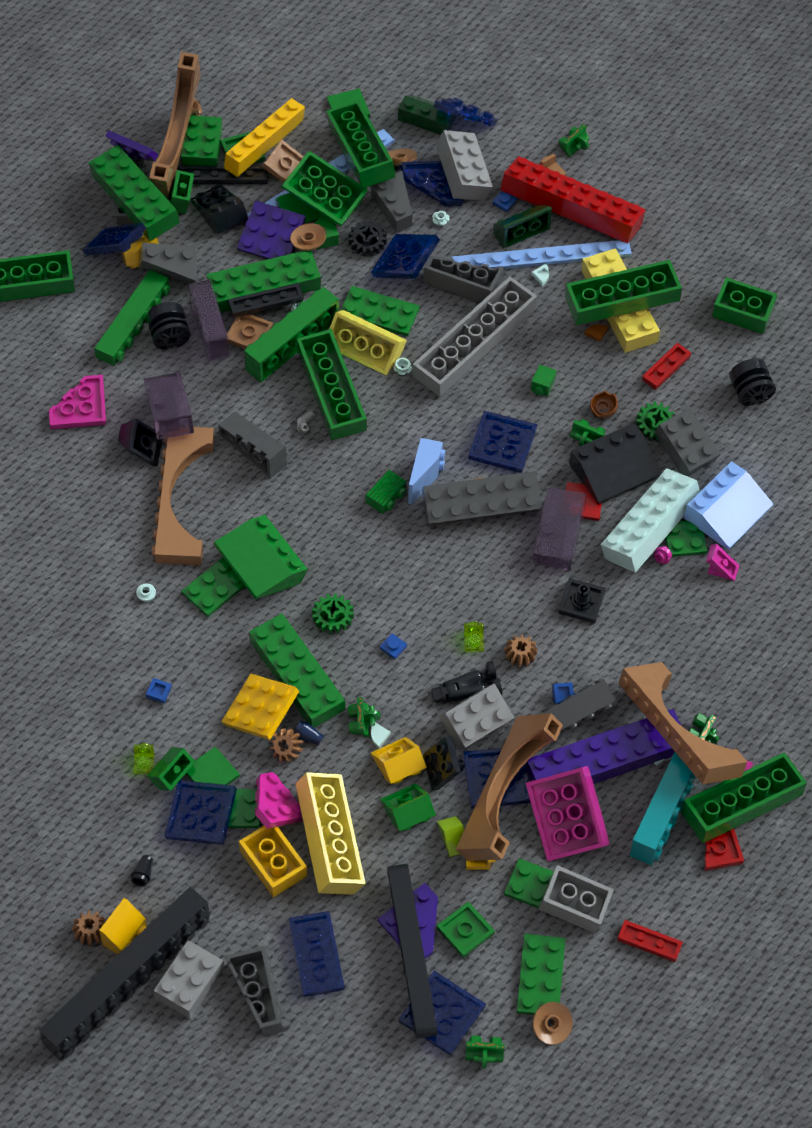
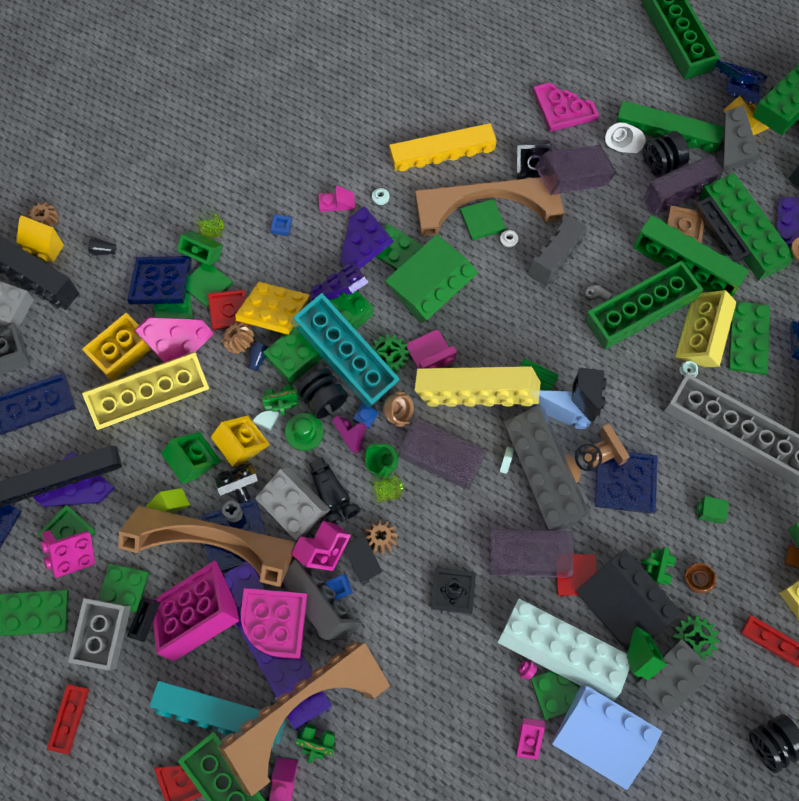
camera: 80 degrees right, 10 degrees up
(94, 236) = (741, 74): none -> clear blue plate
(103, 523) = (442, 147): none -> yellow brick
(135, 358) = (629, 137): none -> white piece
(140, 636) = (337, 201): none -> dark pink slope
(197, 505) = (482, 219): none -> green tile
(197, 614) = (363, 239): none -> dark purple plate
(225, 489) = (506, 242): none -> white plate
(248, 754) = (224, 308): none -> red tile
(251, 636) = (345, 281): none -> dark purple plate
(331, 639) = (345, 350): none -> teal brick
(340, 575) = (431, 351): none -> dark pink bracket
(370, 672) = (321, 390): none -> black wheel
(394, 532) = (478, 386): none -> light yellow brick
(395, 614) = (398, 408): none -> medium nougat cap
(399, 702) = (304, 432): none -> green plate
(415, 657) = (353, 437): none -> magenta slope
(427, 436) = (588, 392): none -> black slope
(445, 634) = (381, 459): none -> green cap
(448, 584) = (442, 453): none -> clear purple brick
(463, 532) = (507, 460): none -> light aqua tile
(470, 444) = (603, 451): none -> medium nougat piece
(480, 765) = (238, 513): none -> dark grey bush
(492, 929) = (67, 553): none -> dark pink bracket
(525, 692) = (324, 549): none -> dark pink brick
(542, 667) = (363, 560): none -> black panel
(584, 866) = (143, 619): none -> black tile
(592, 738) = (274, 621): none -> dark pink plate
(668, 456) = (644, 655): none -> green slope

